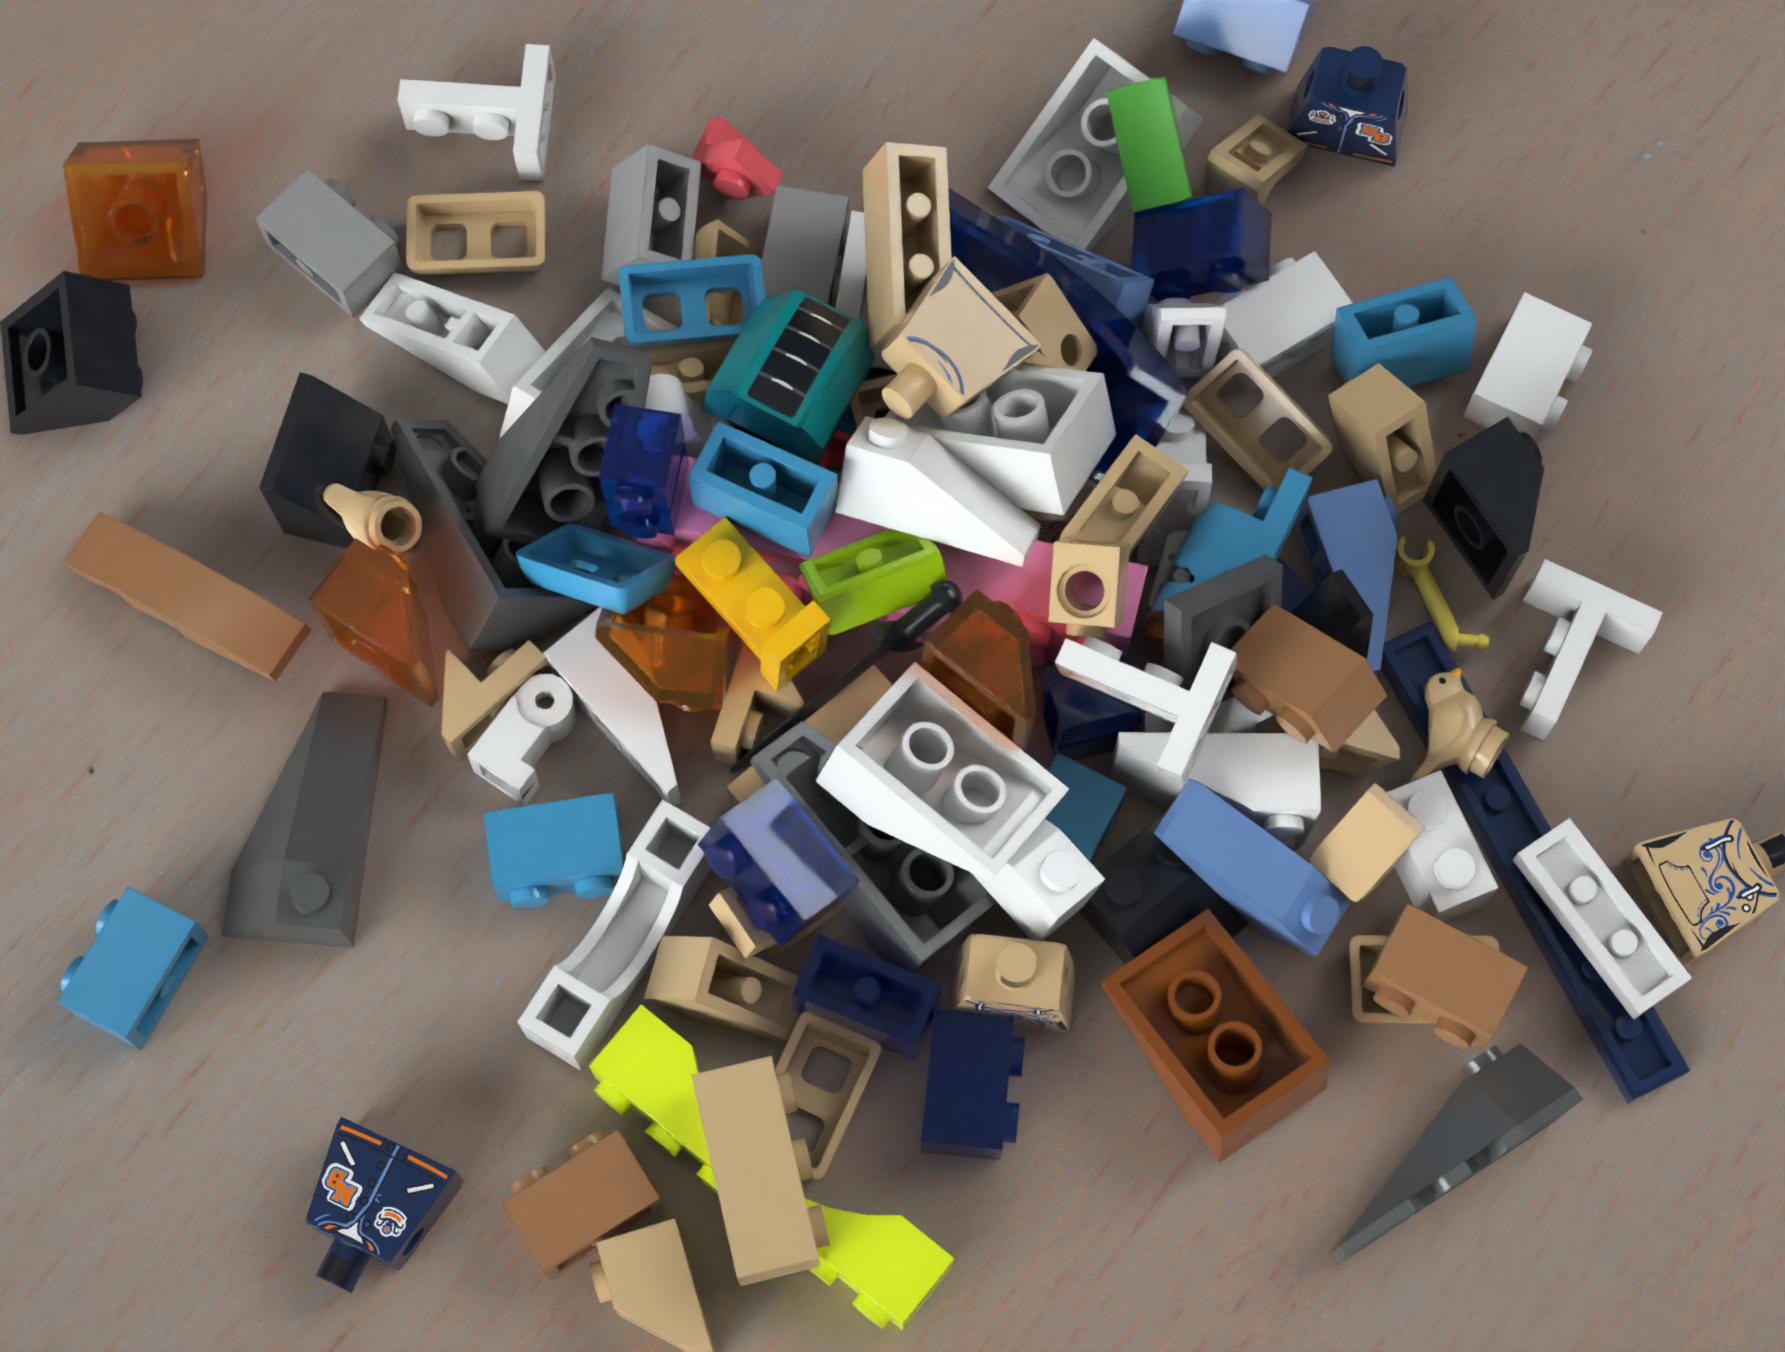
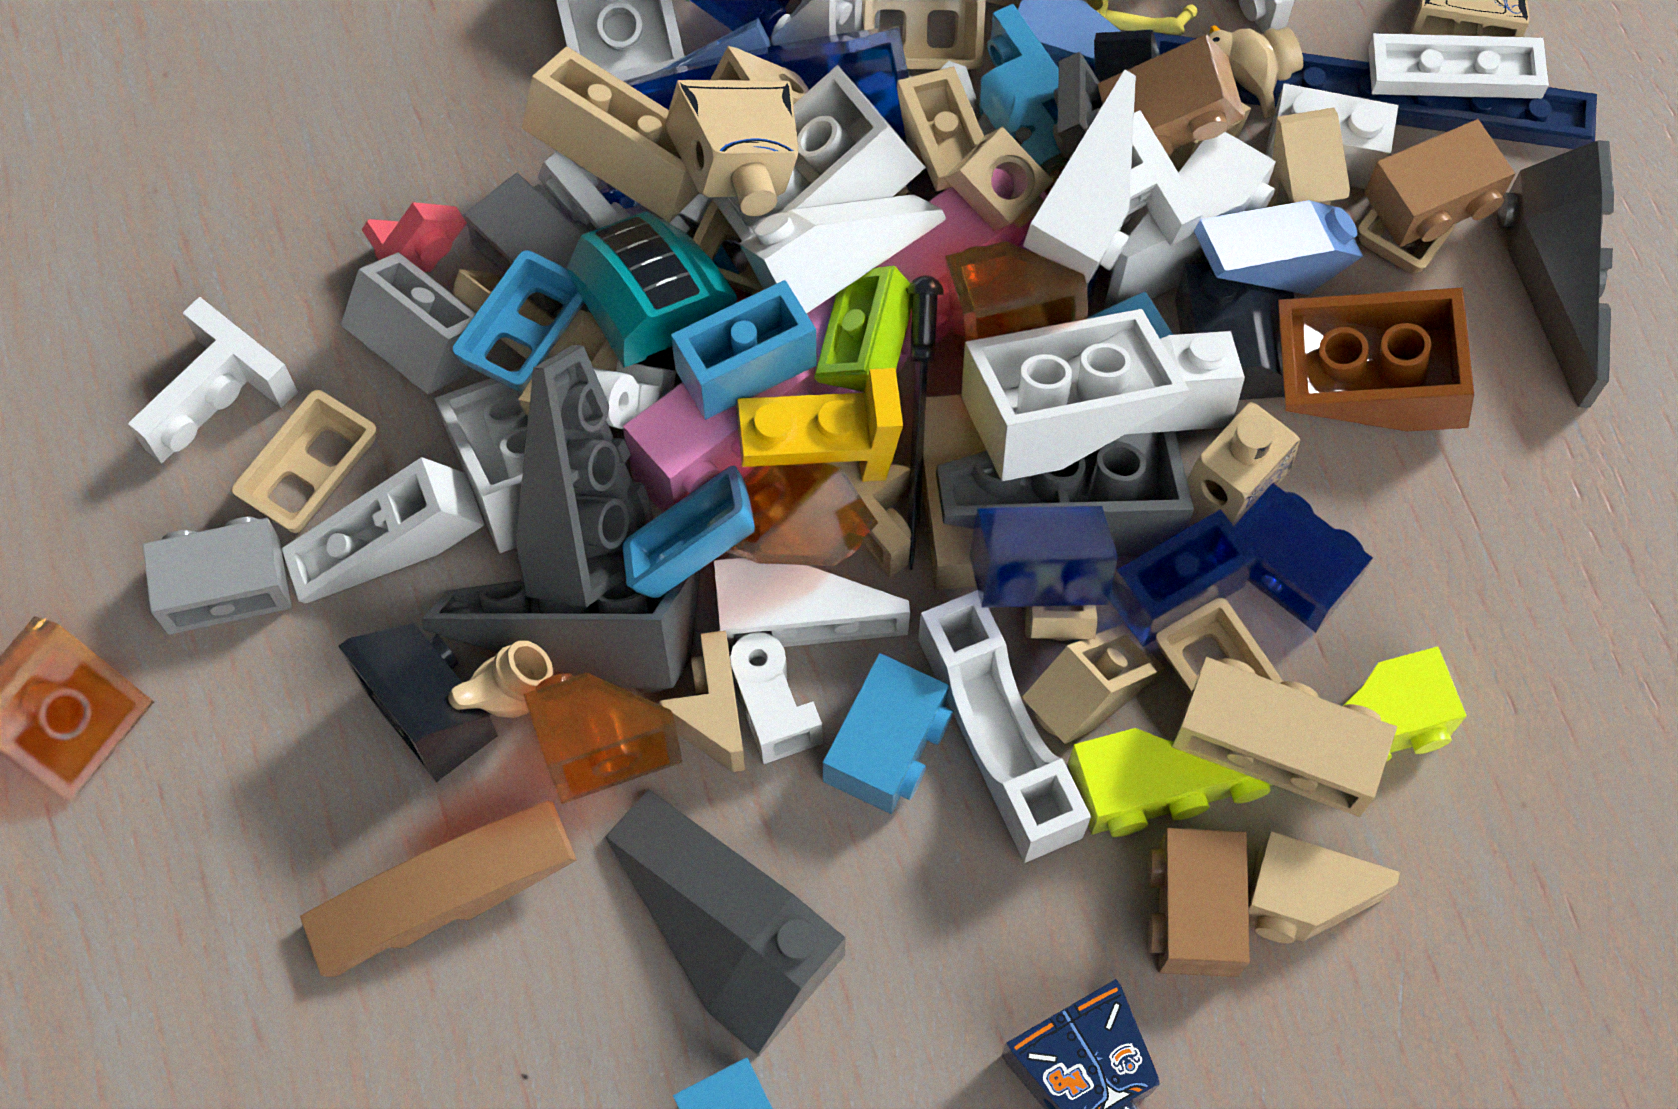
camera: 55 degrees left, 5 degrees down
(71, 355) = (136, 850): black slope -> none
(644, 471) = (663, 419): clear blue piece -> none
(1105, 665) = (1092, 195): none -> white slope

